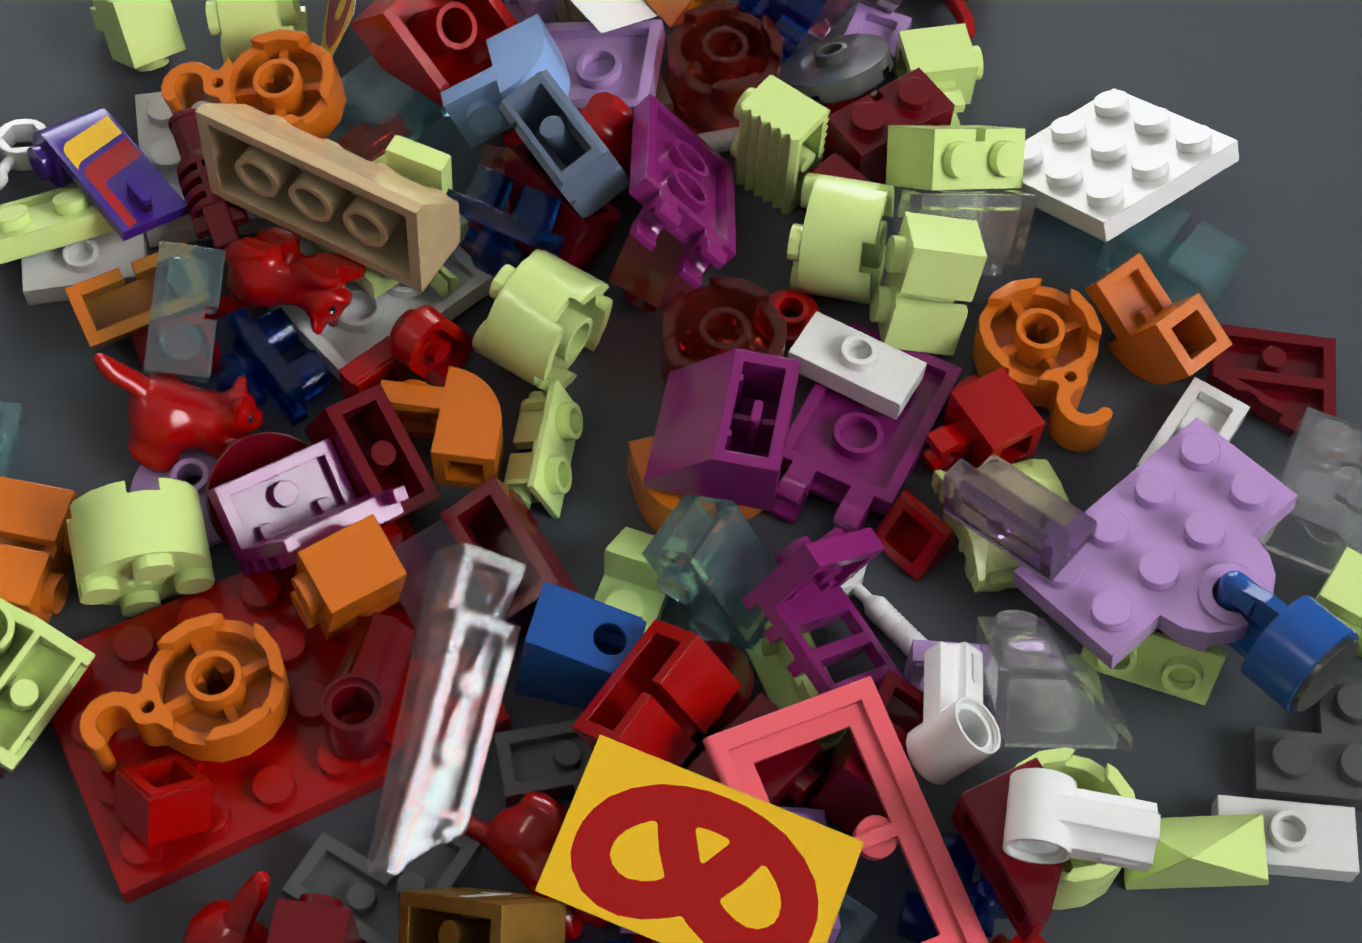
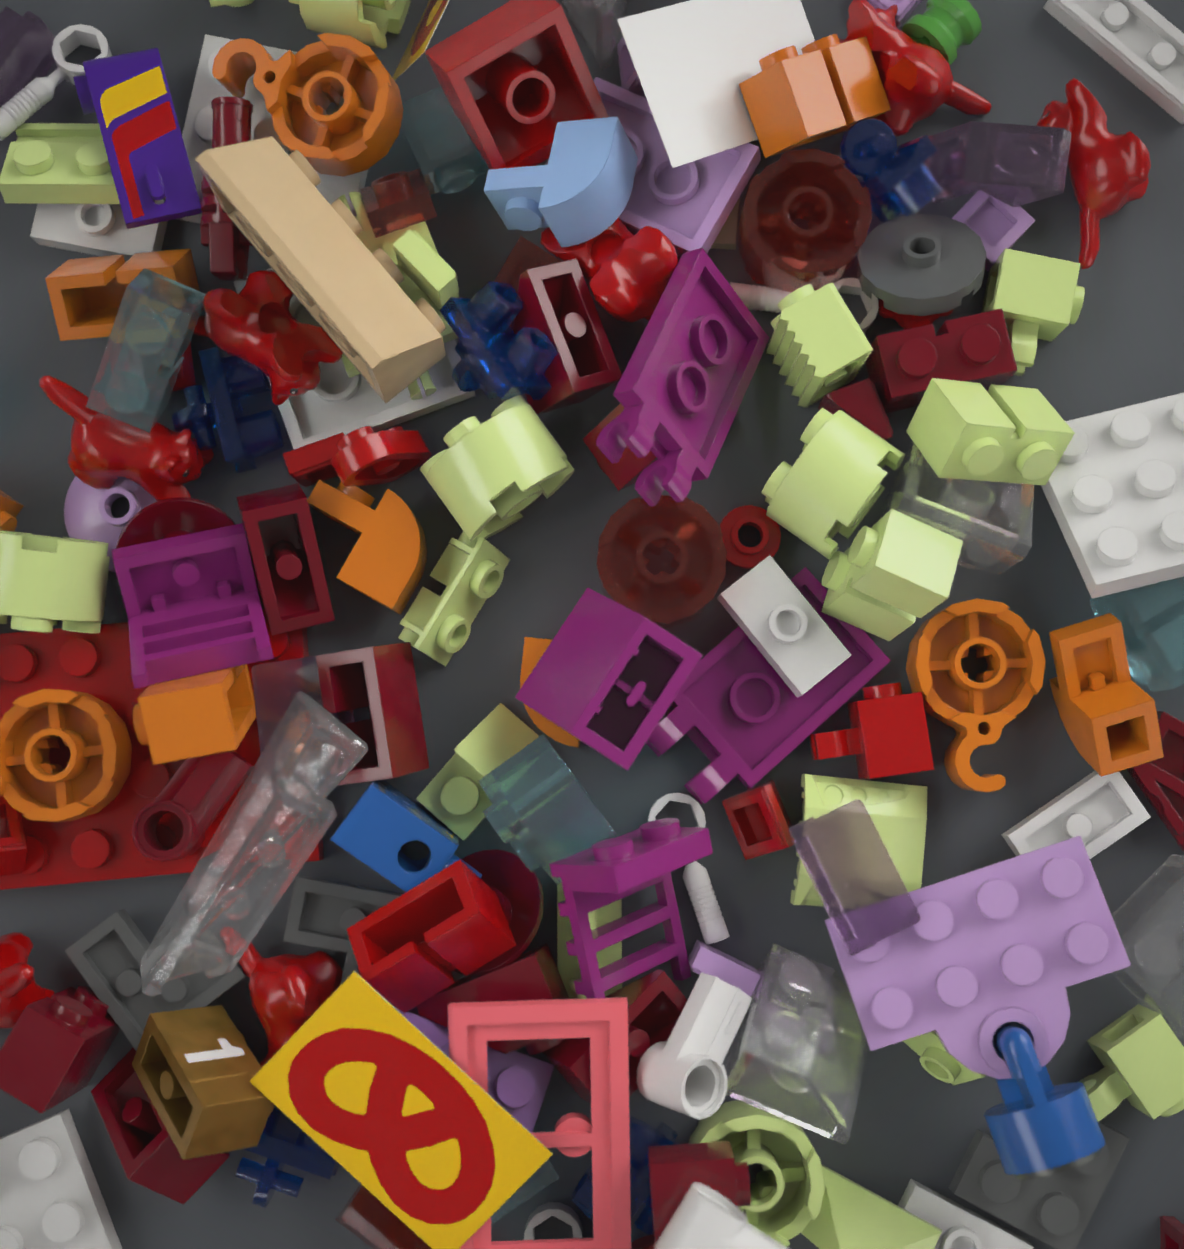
camera: 30 degrees right, 25 degrees up
(564, 144) = (575, 300): sand blue brick -> none

